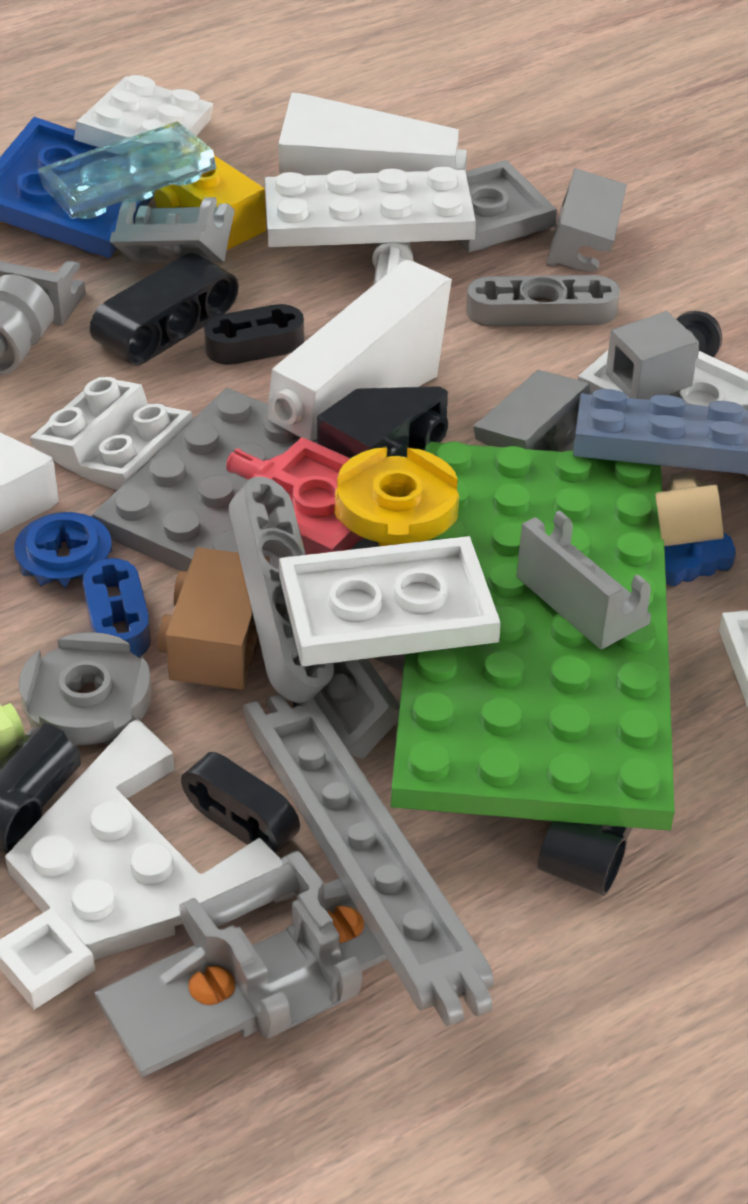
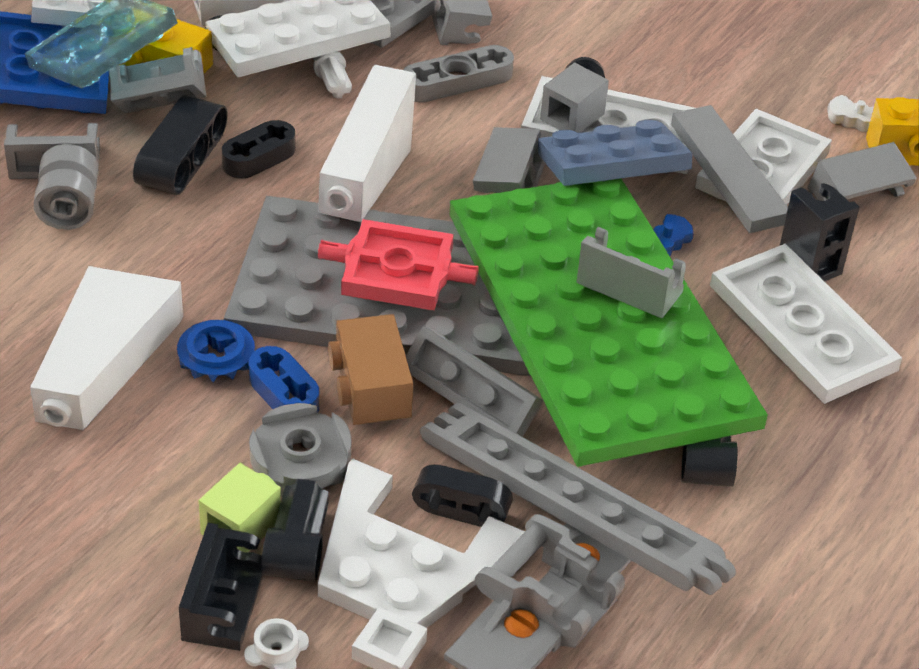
camera: 25 degrees left, 0 degrees up
(109, 431) = (197, 252): white slope -> none
(267, 521) = (417, 335): light grey beam -> none
(375, 501) = (446, 251): yellow plate -> none
(383, 419) = (418, 195): black slope -> none
(387, 601) = (508, 322): white plate -> none
(689, 510) = (661, 206): tan piece -> none

